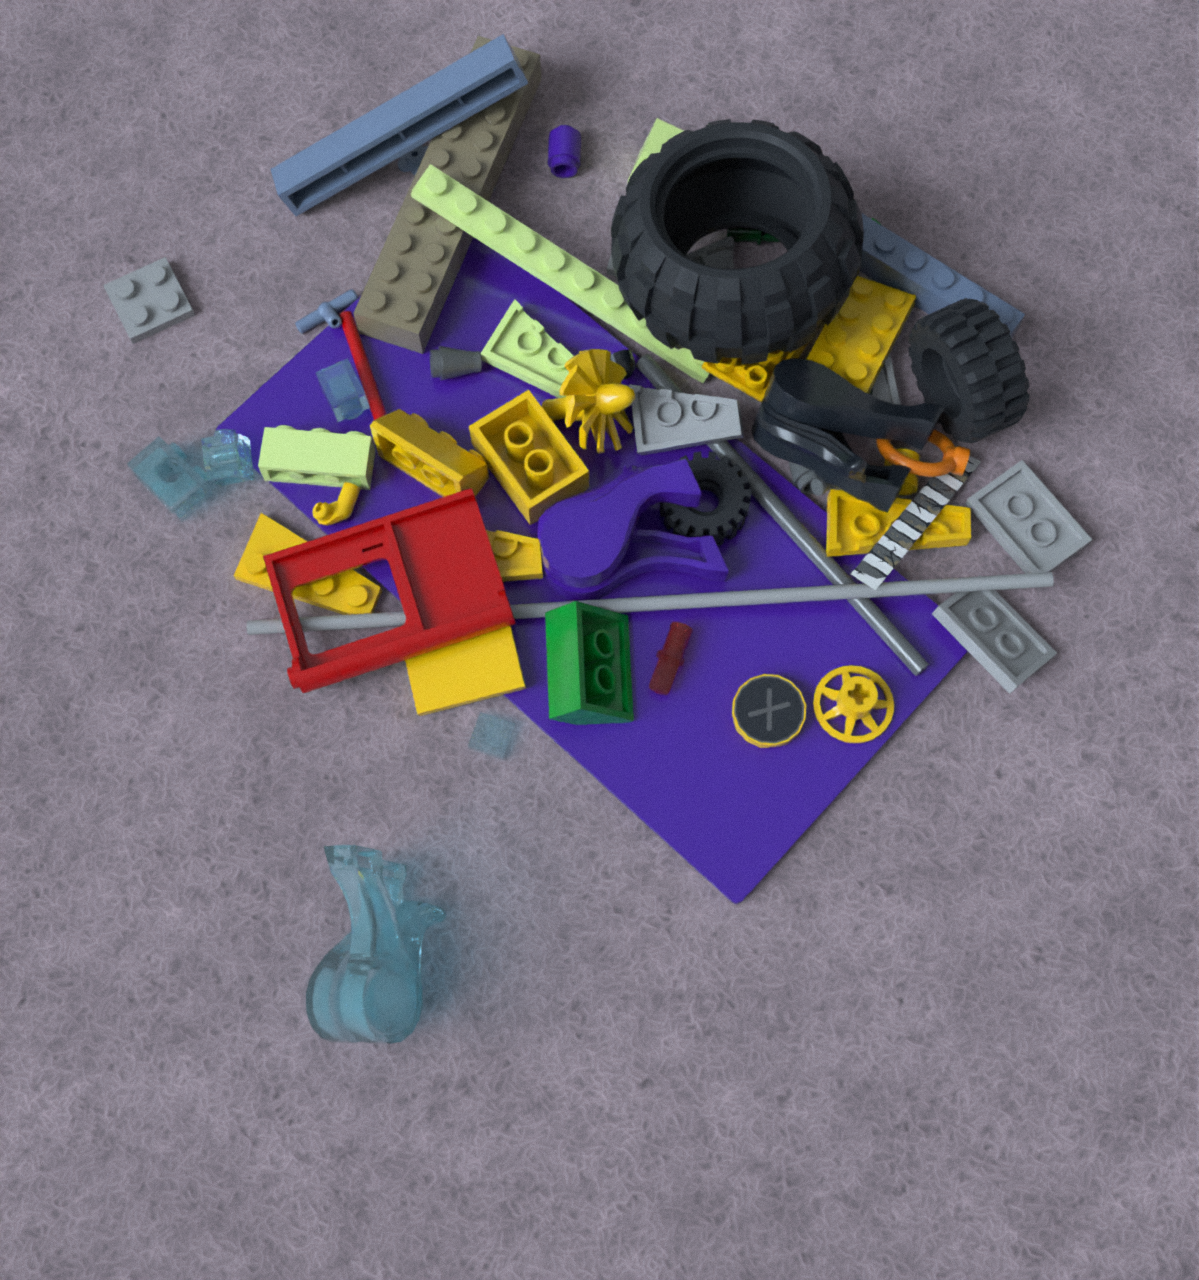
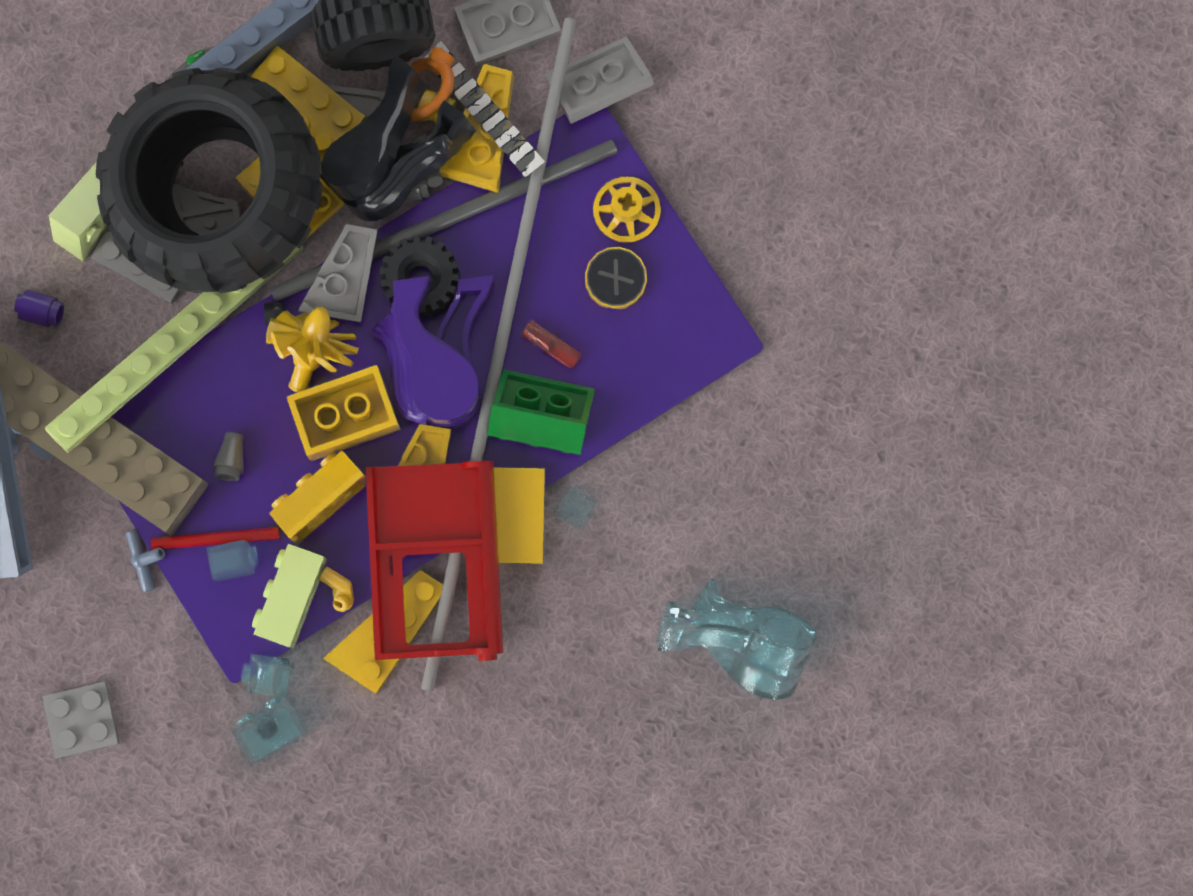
camera: 80 degrees left, 10 degrees up
(527, 351) = (242, 387): yellowish green wing -> none

